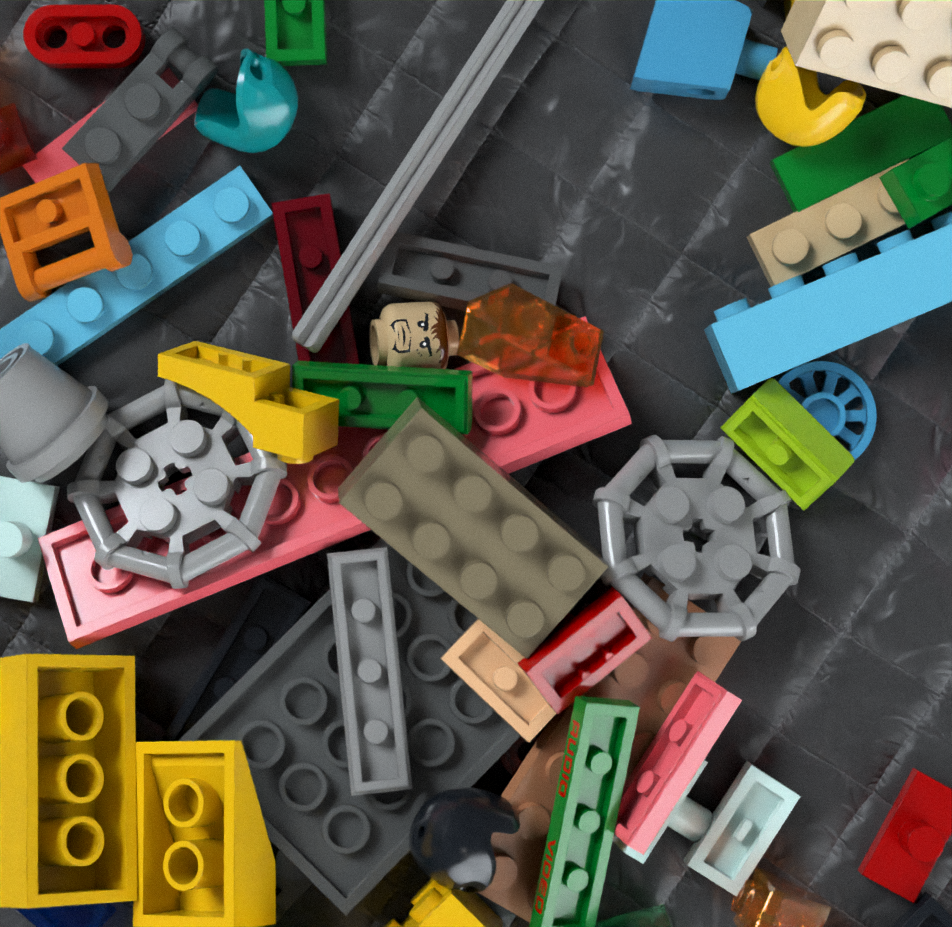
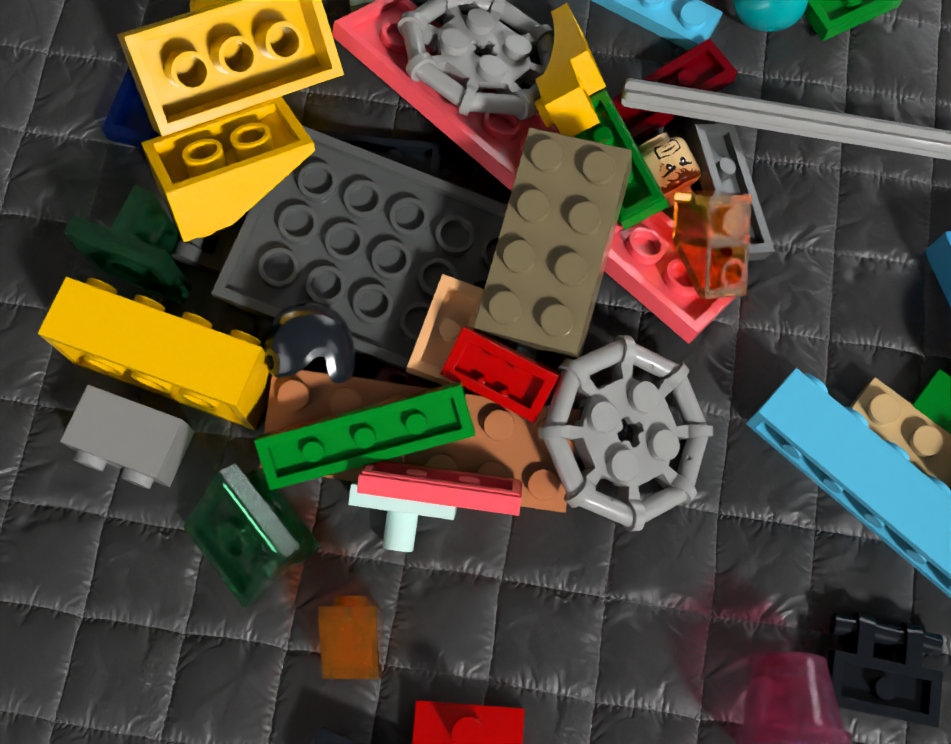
camera: 65 degrees right, 15 degrees down
(369, 671) = (406, 233): light grey tile -> none
(742, 828) = (410, 580): light aqua plate -> none
(788, 443) = (734, 476): lime slope -> none
(830, 409) = (766, 498): dark azure wheel -> none

